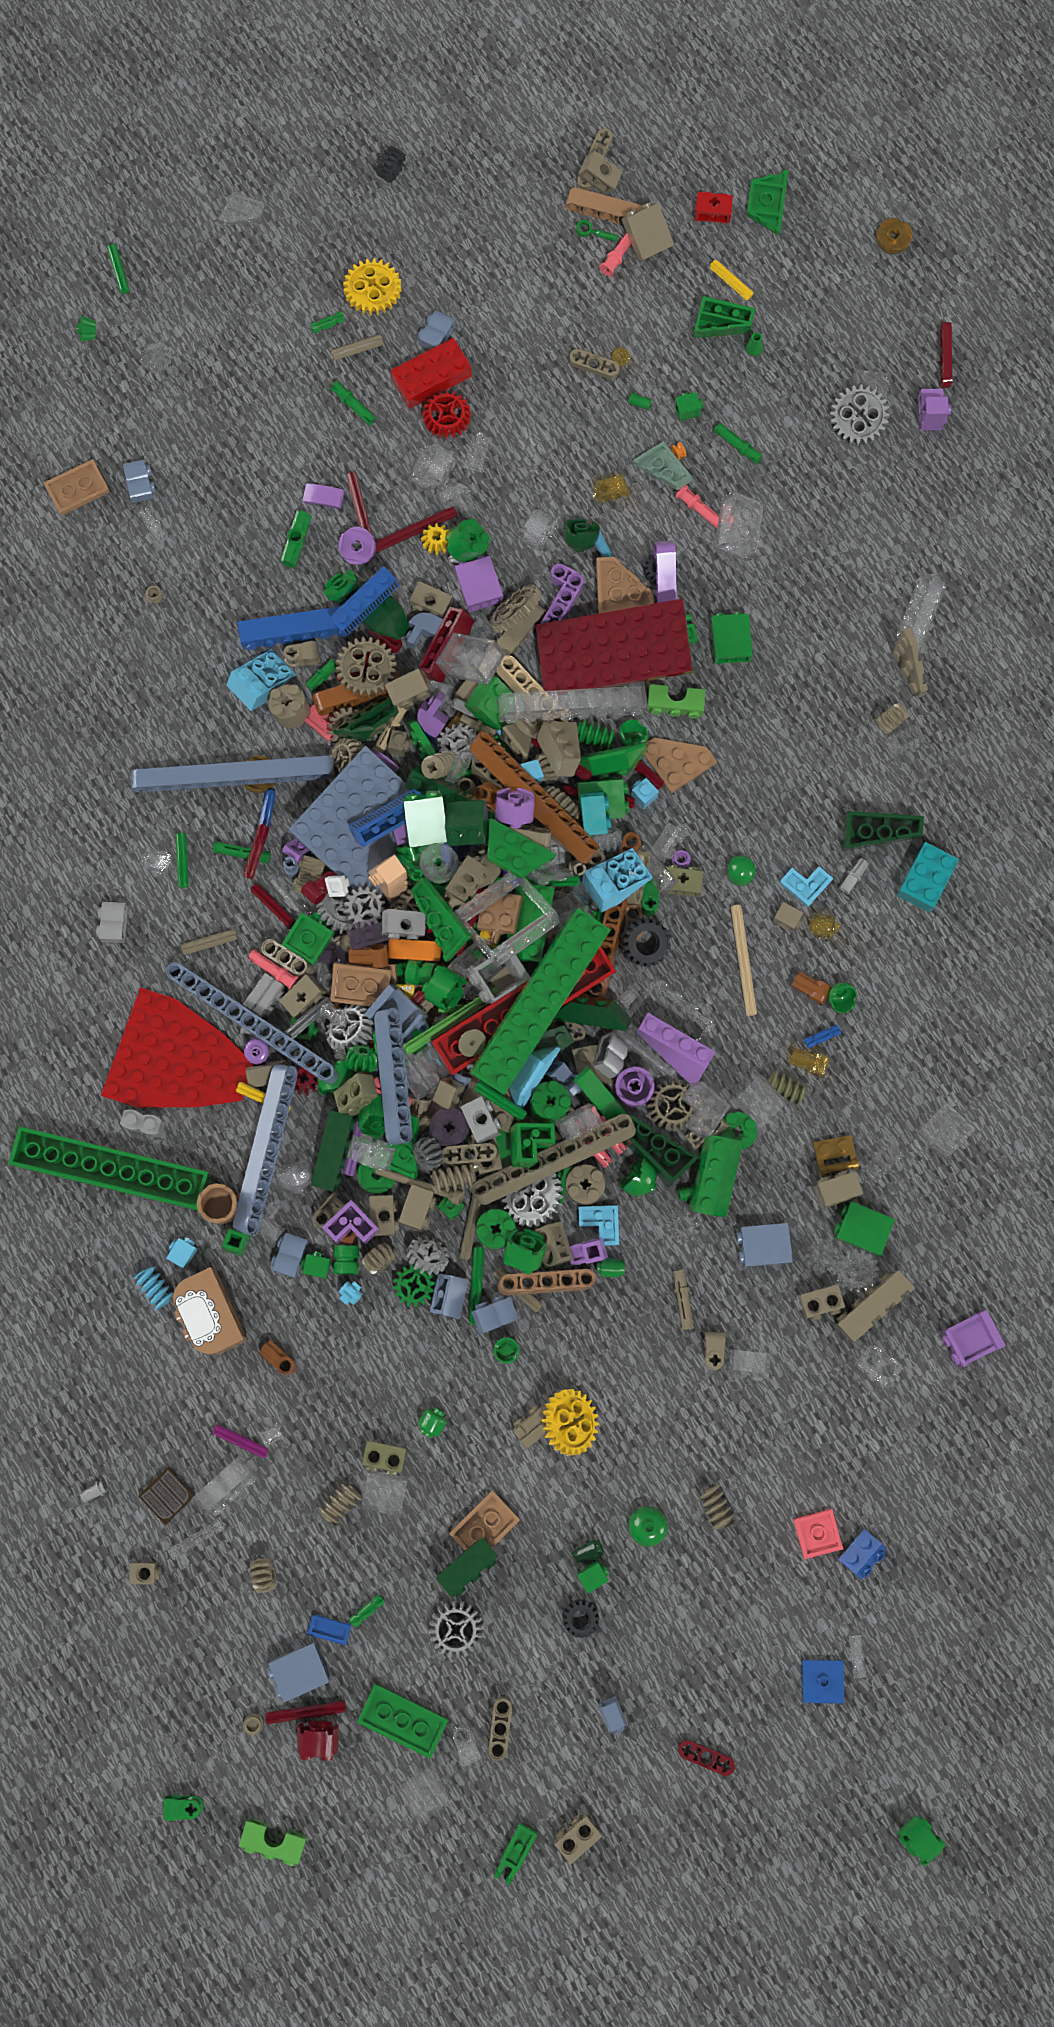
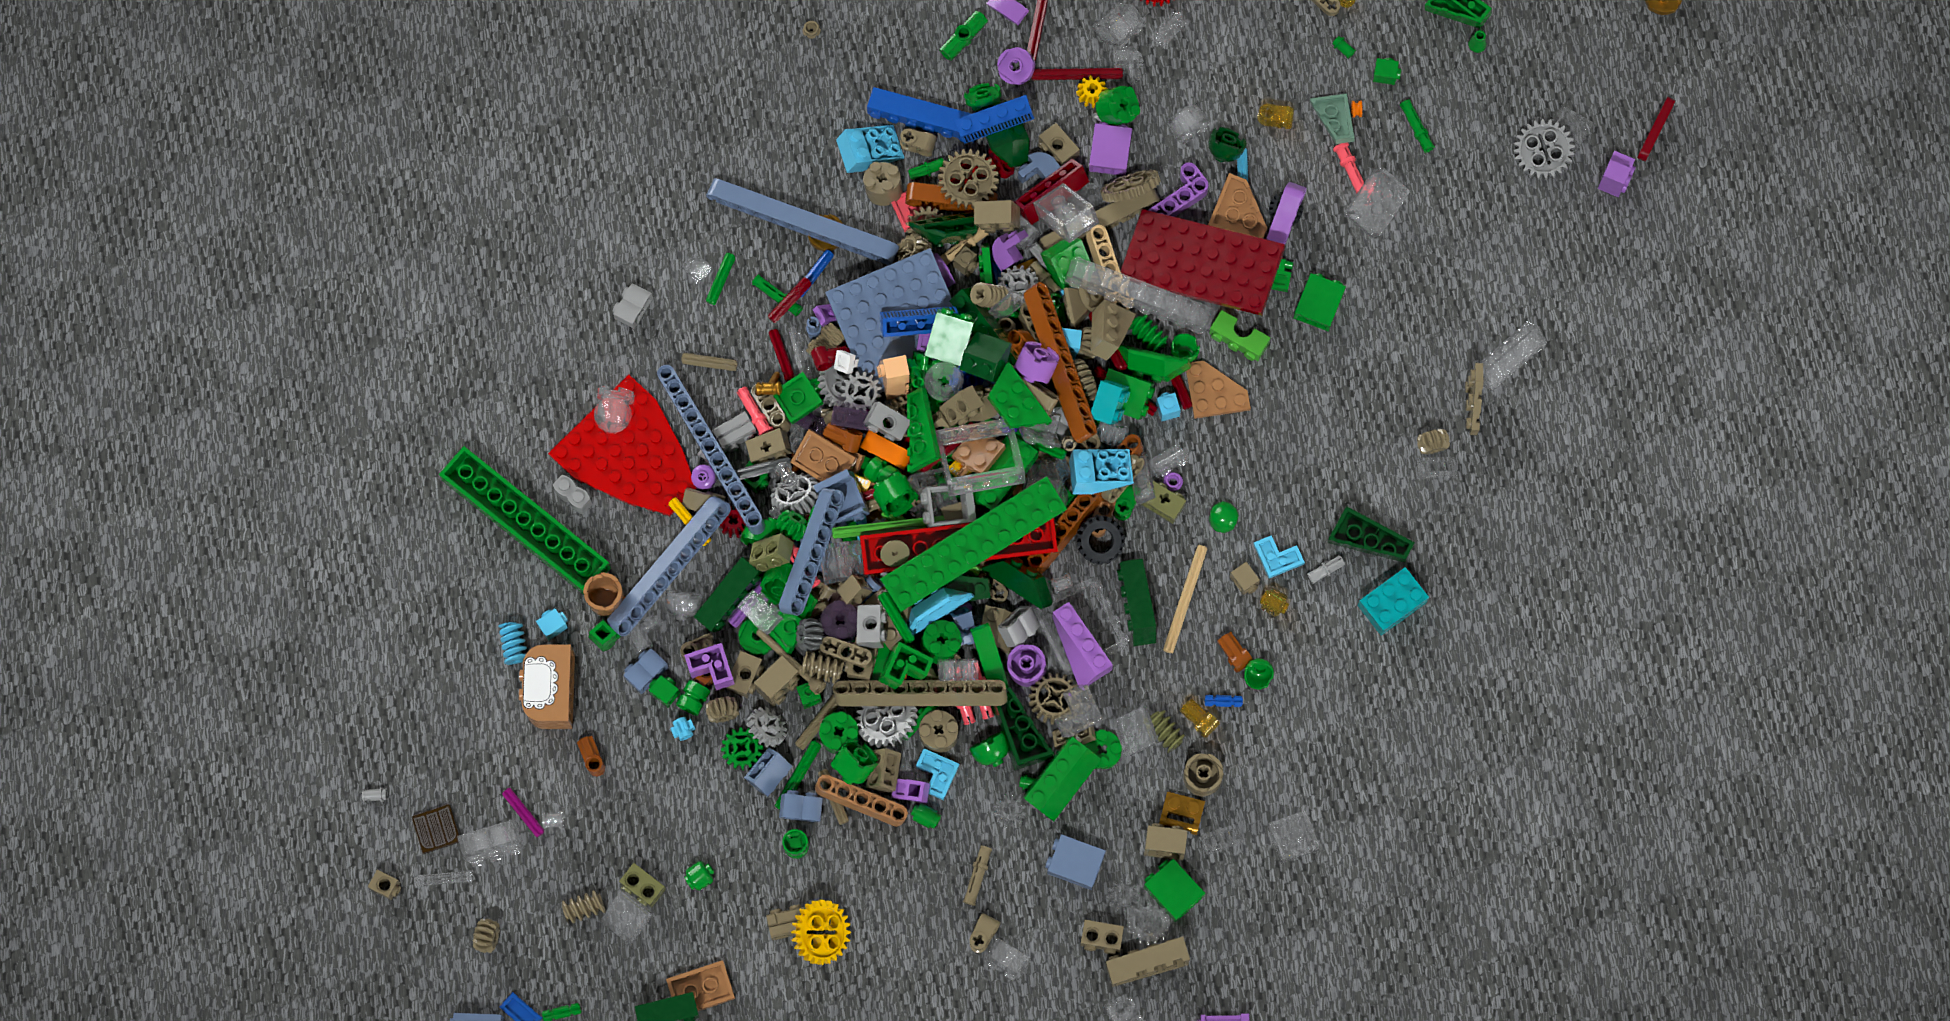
camera: 30 degrees right, 5 degrees down
(143, 1029) = (613, 409): none -> clear tile
(279, 940) = (771, 388): none -> pearl gold piece
(704, 982) = (1138, 602): none -> dark green wedge
(849, 1108) = (1203, 763): none -> dark tan brick

